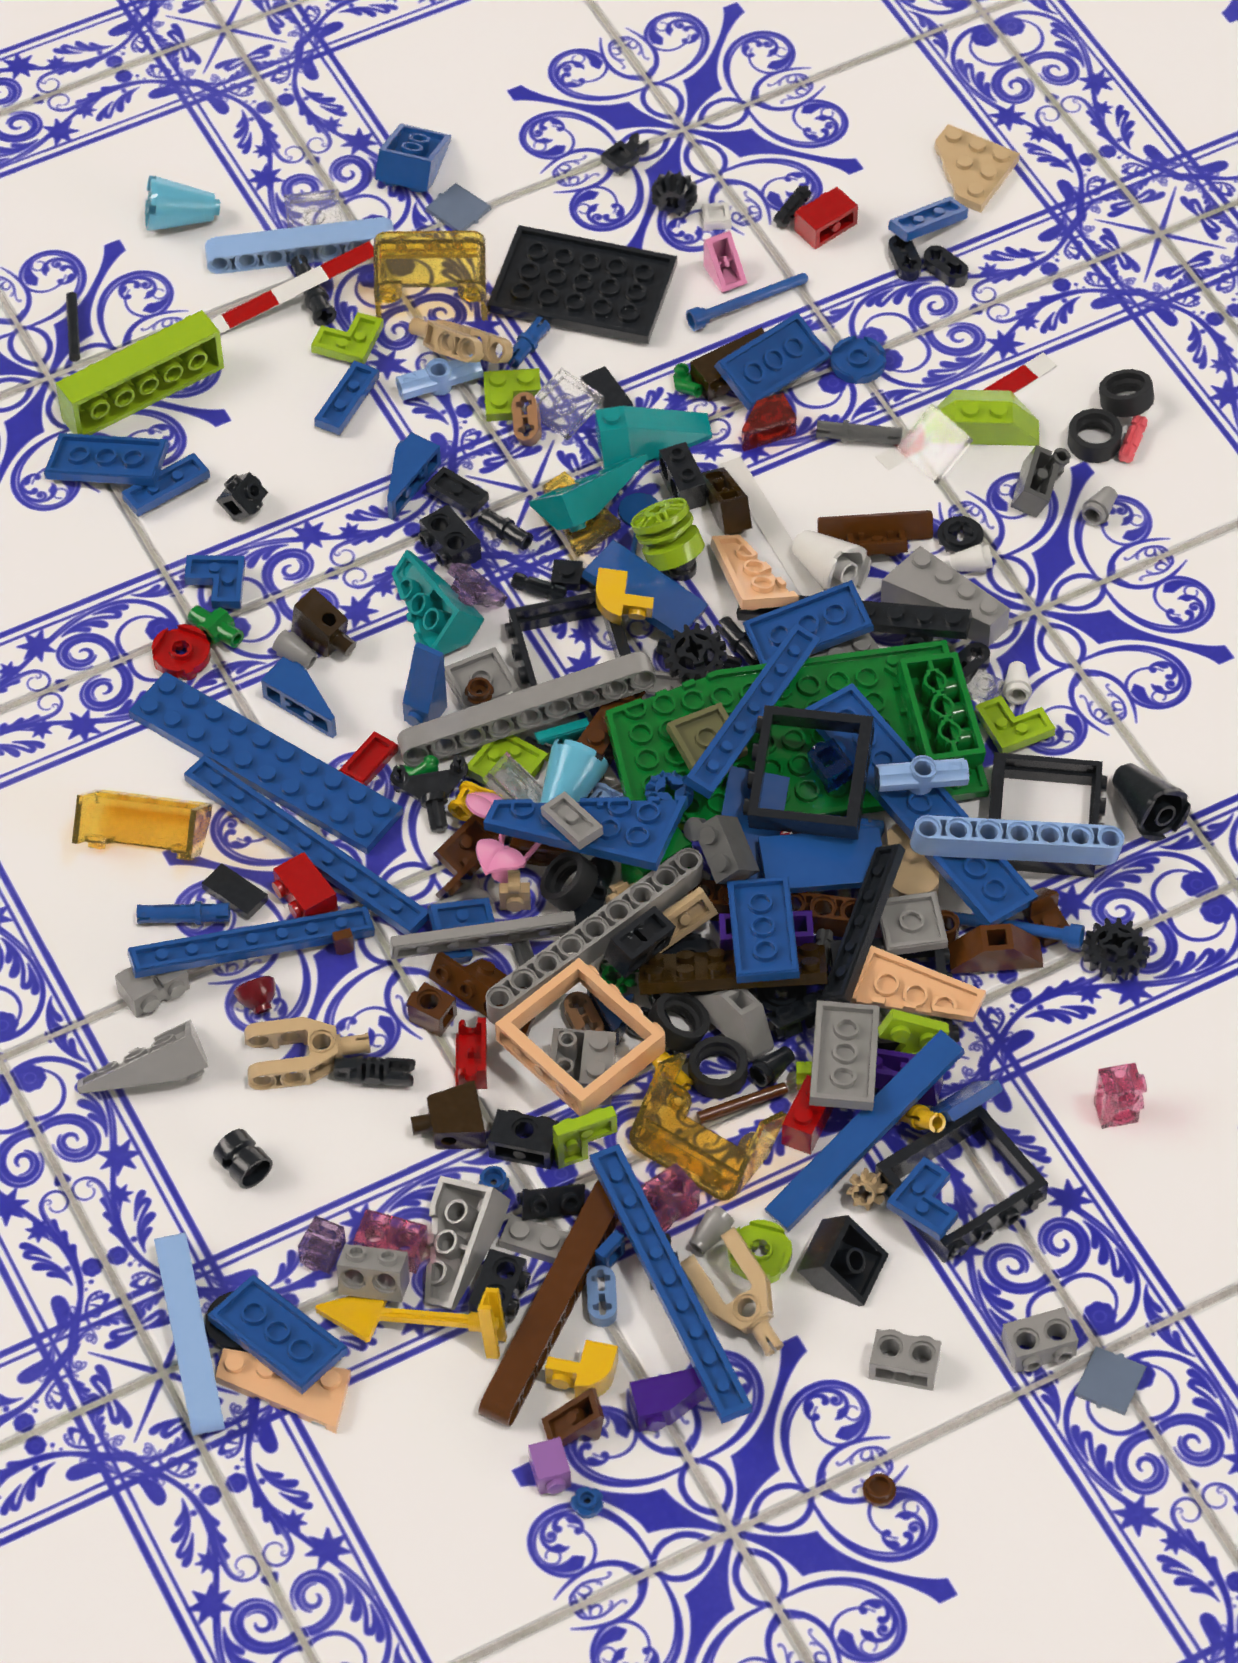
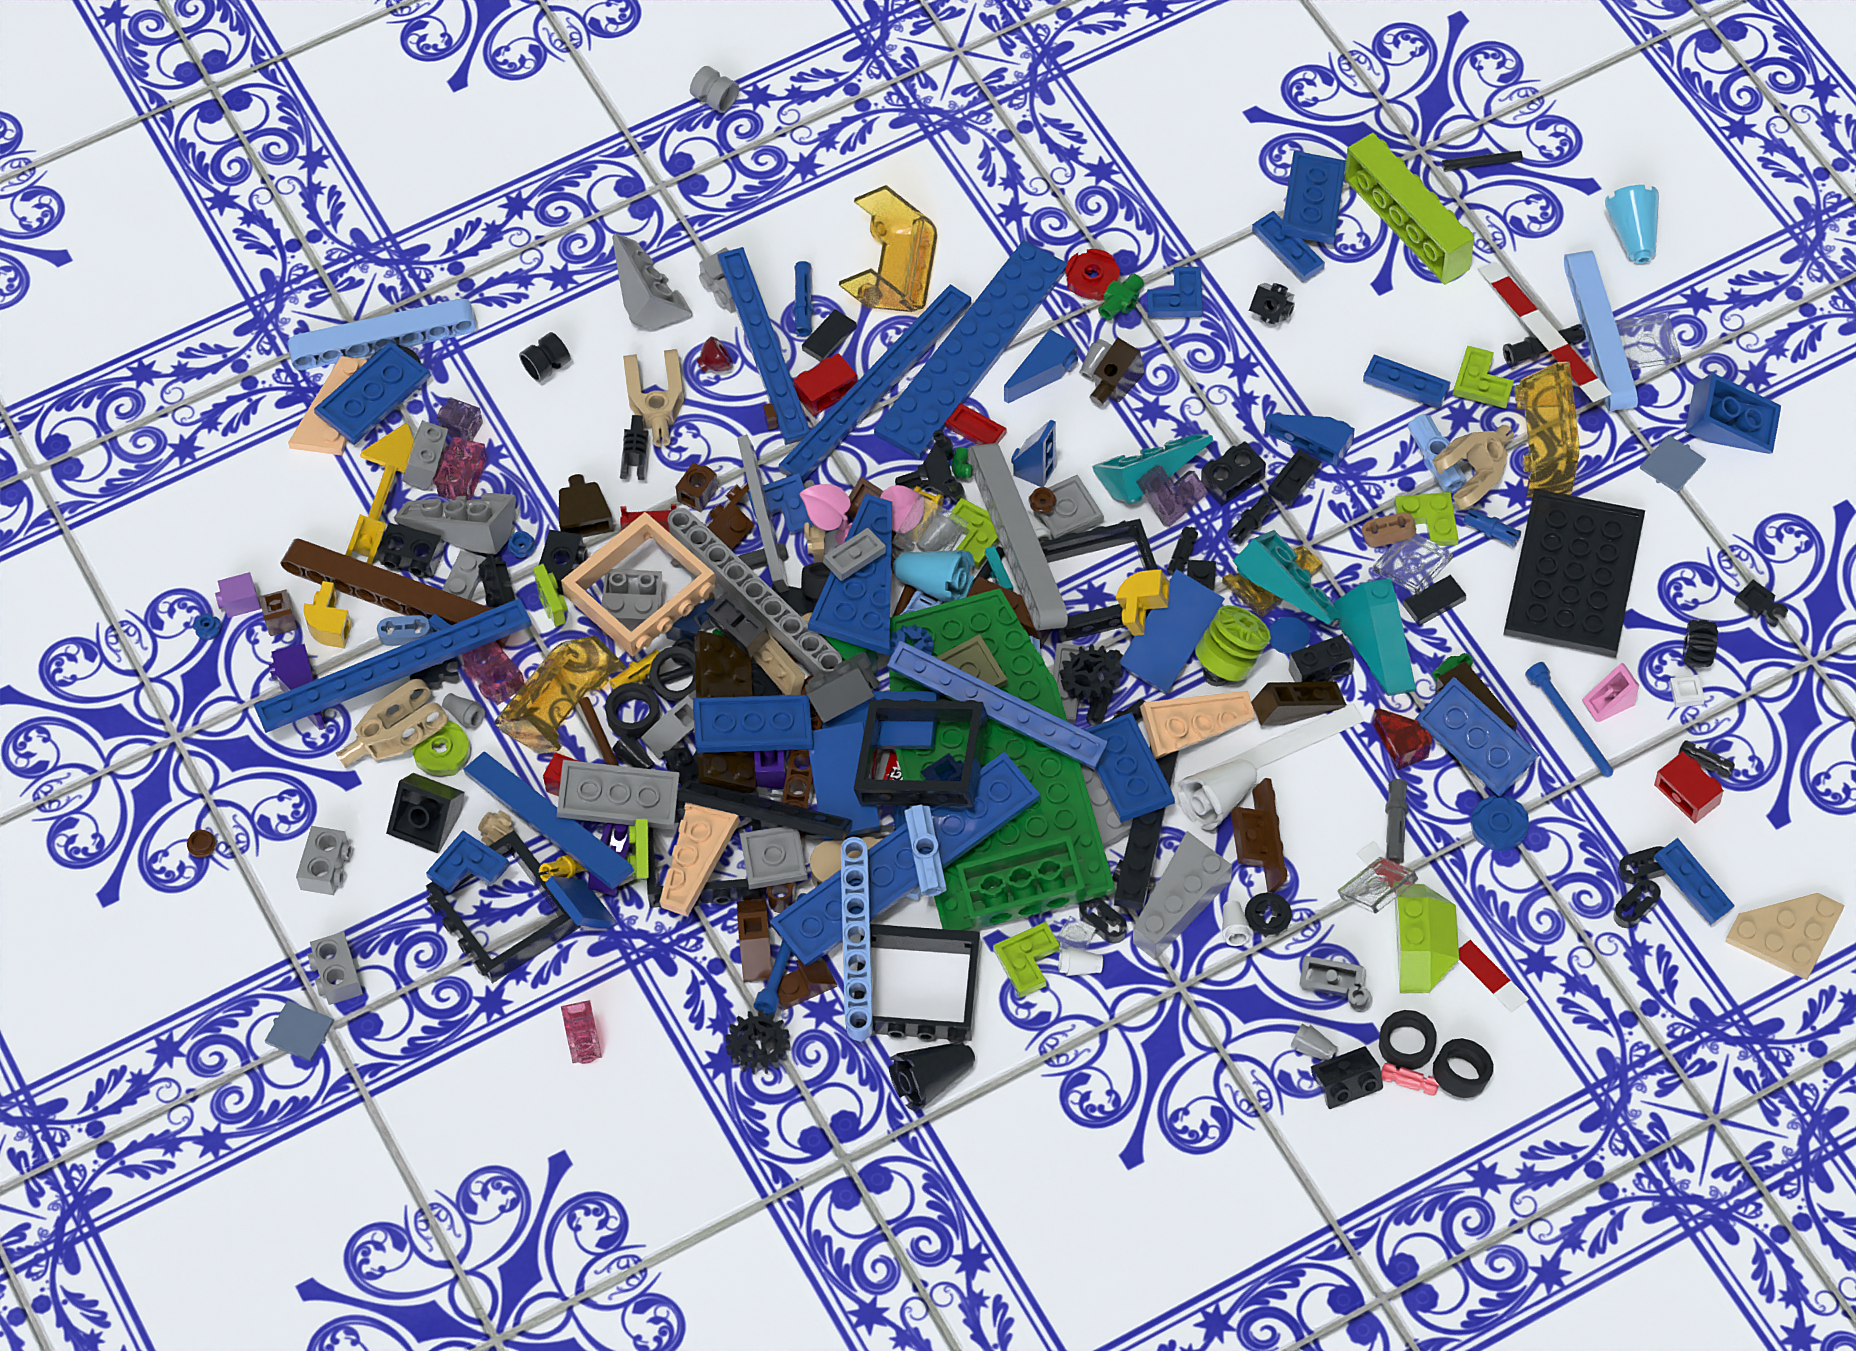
camera: 90 degrees right, 5 degrees up
(1131, 480) = (1348, 1077): none -> black bracket

